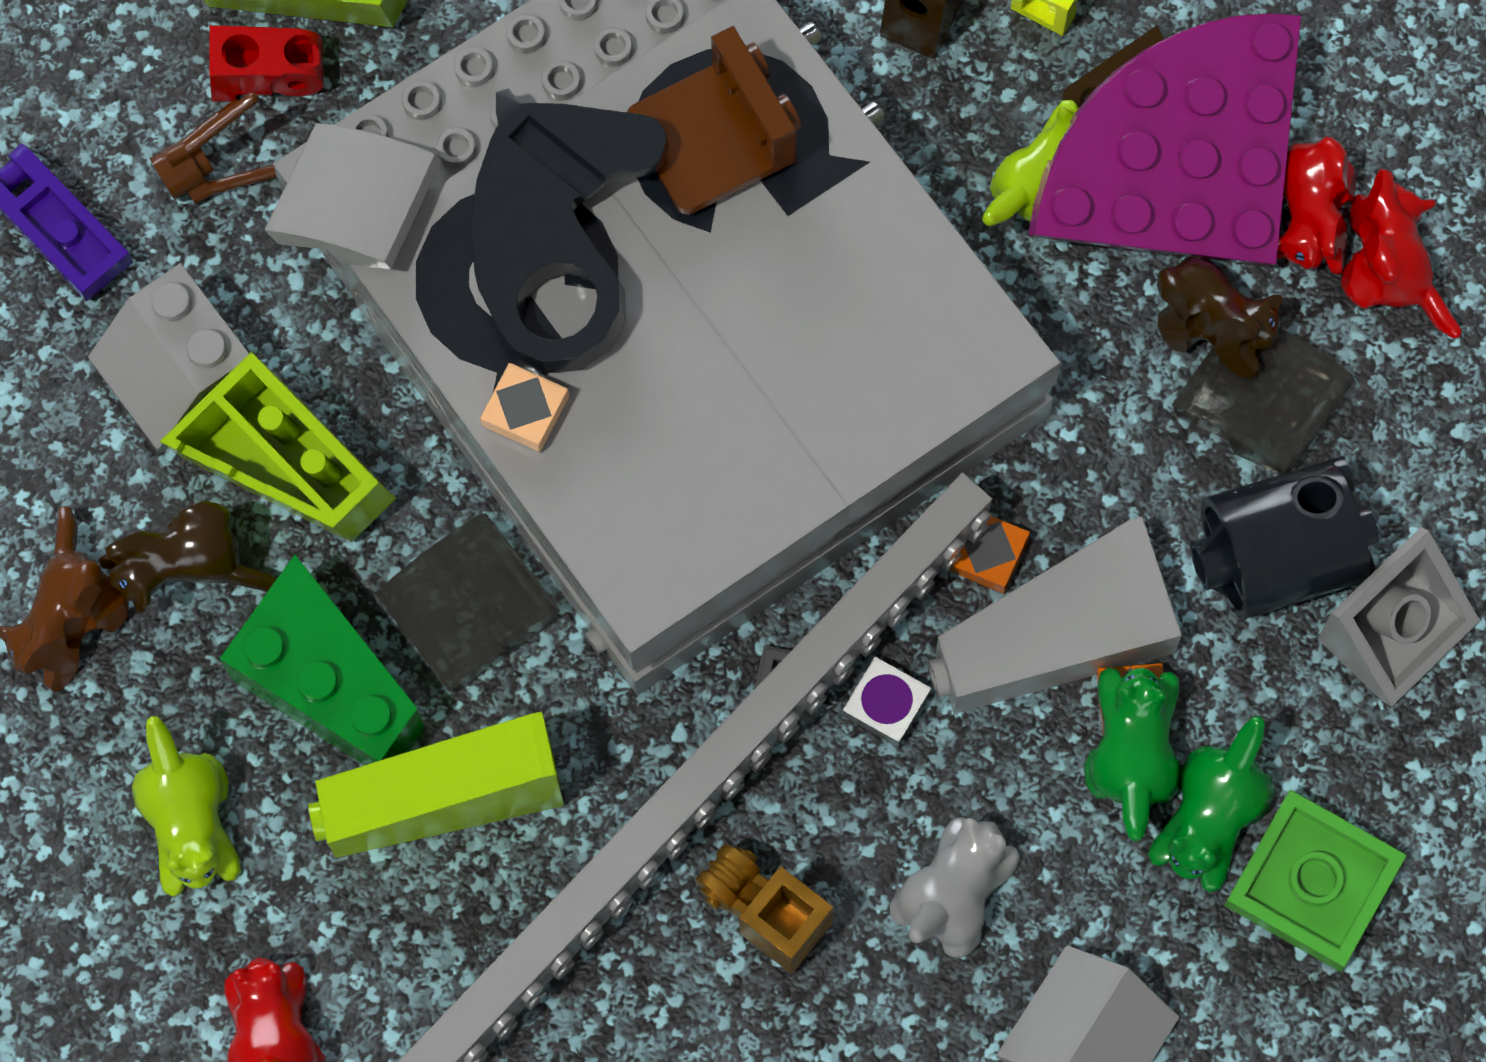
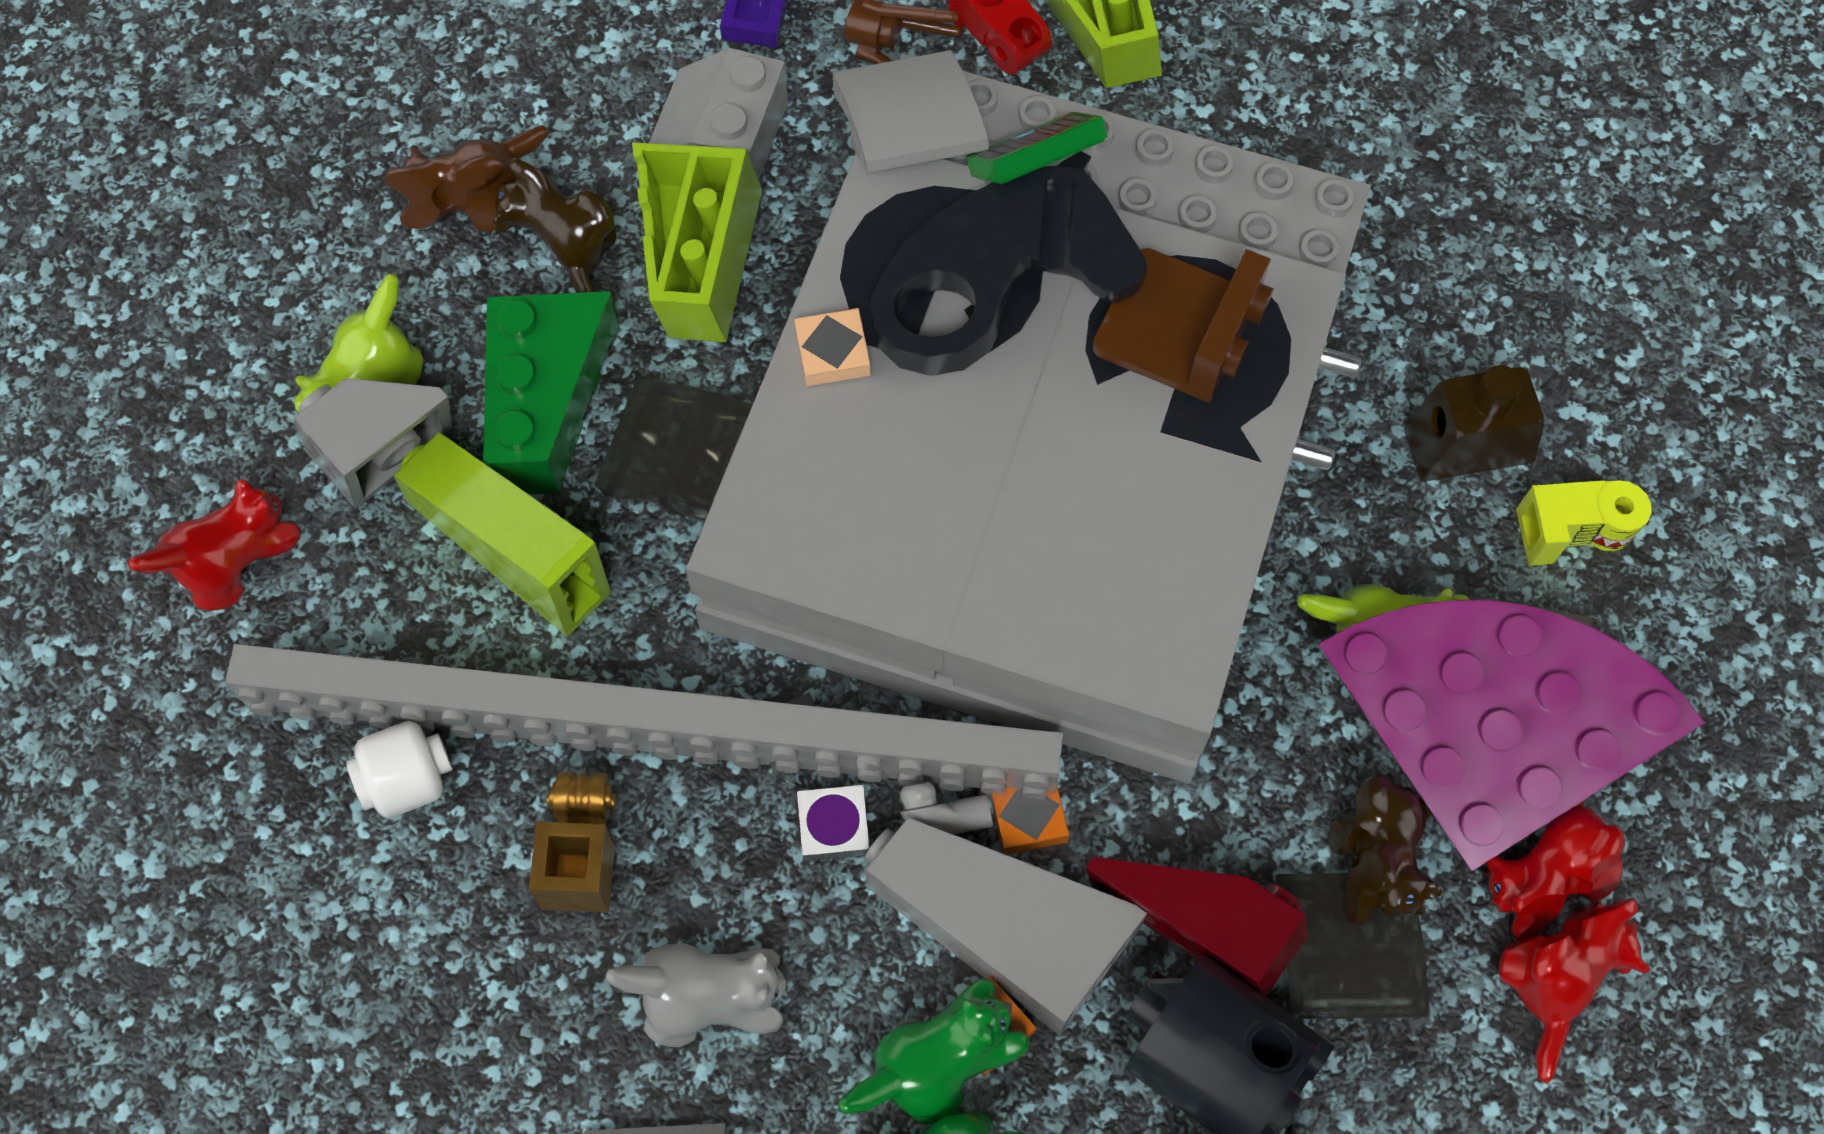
camera: 50 degrees right, 5 degrees down
(275, 841) = (367, 429): none -> light grey slope
(470, 122) = (1037, 147): none -> green tile
(595, 1007) = (398, 769): none -> white head
(947, 610) = (949, 816): none -> light grey arm
(1175, 472) = (1211, 913): none -> dark red slope

